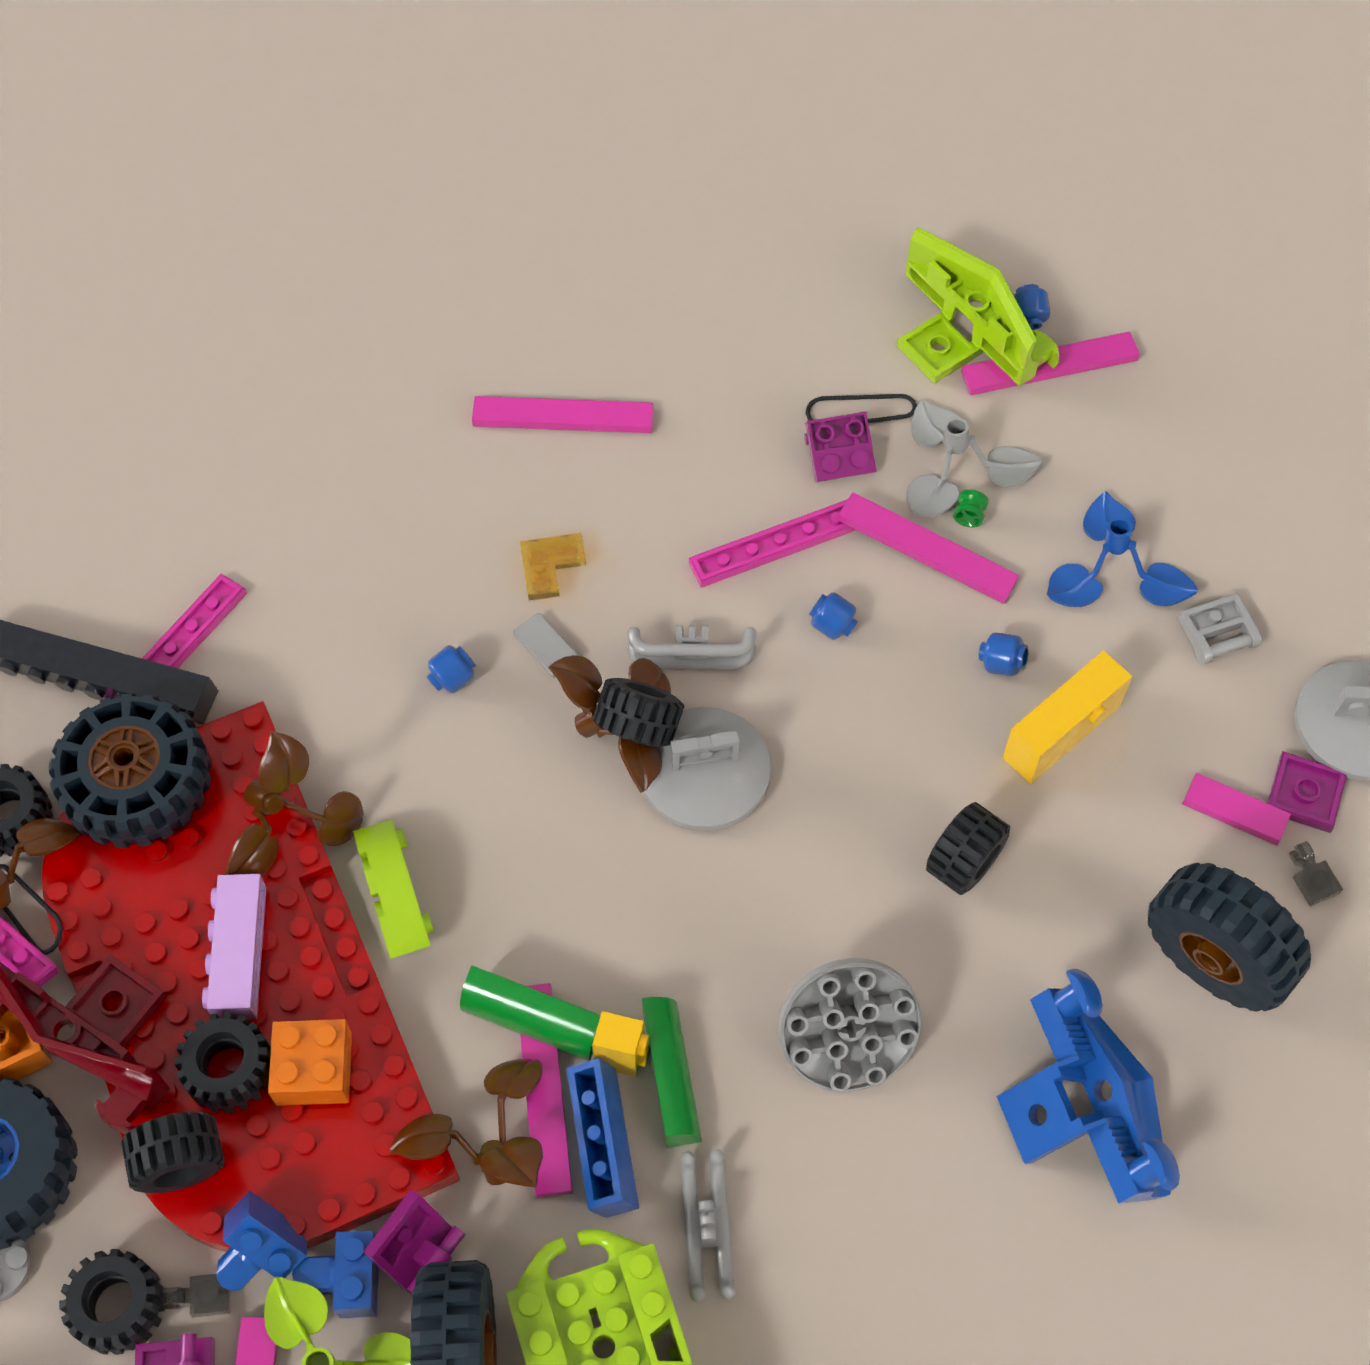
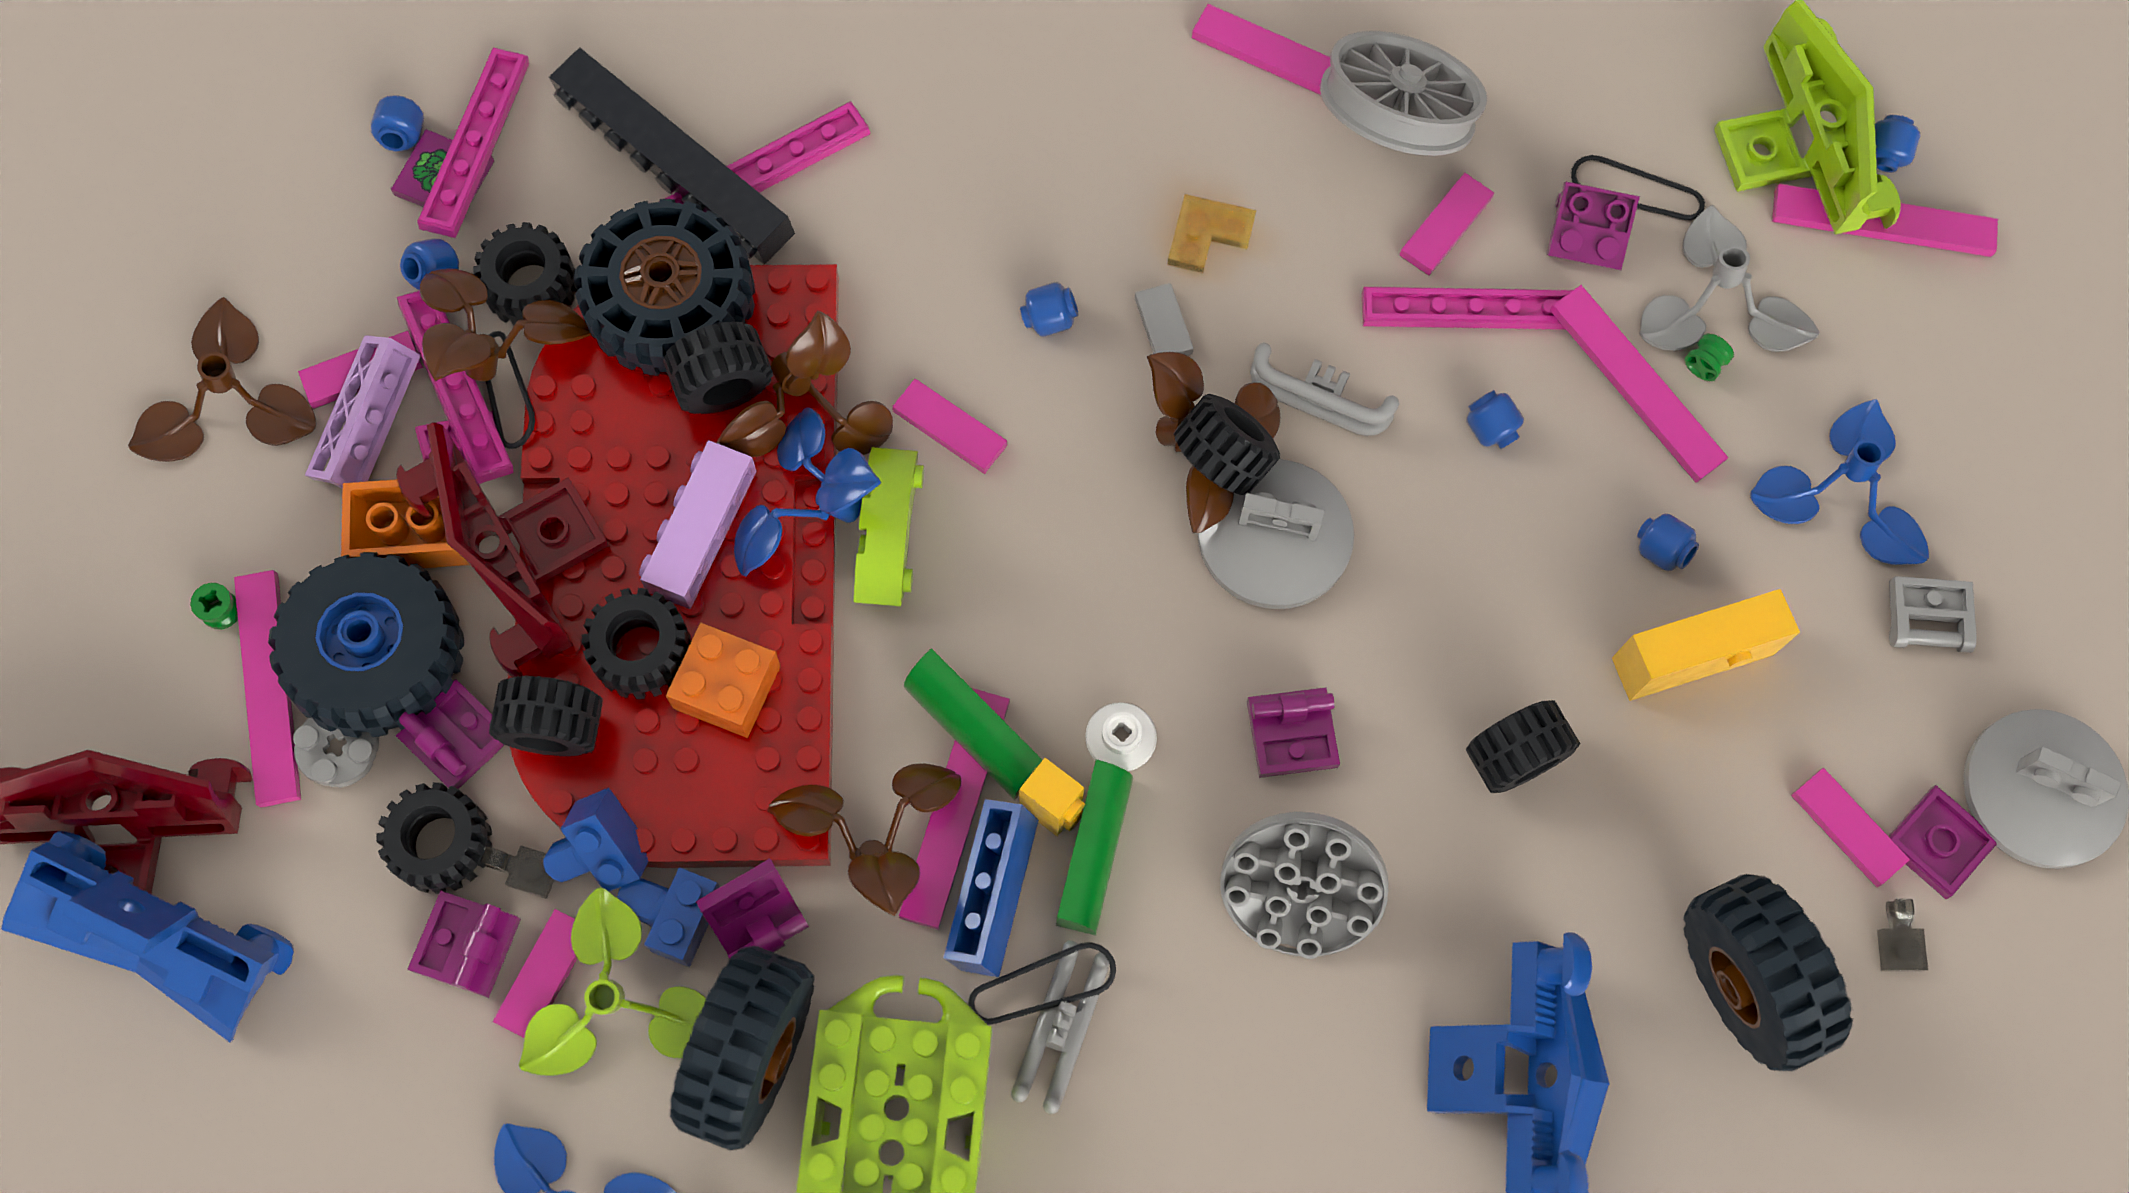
camera: 20 degrees right, 10 degrees up
(93, 1211) = (452, 737): none -> magenta plate
(202, 814) = (717, 367): none -> black tyre
(348, 857) = (840, 495): none -> blue plant
(408, 790) = (949, 426): none -> dark pink tile
(641, 986) = (1108, 748): none -> white piece
(655, 403) = (1403, 93): none -> light grey wheel
(668, 1181) = (1107, 984): none -> black piece
(730, 488) = (1446, 224): none -> dark pink tile
(787, 914) = (1293, 732): none -> magenta plate

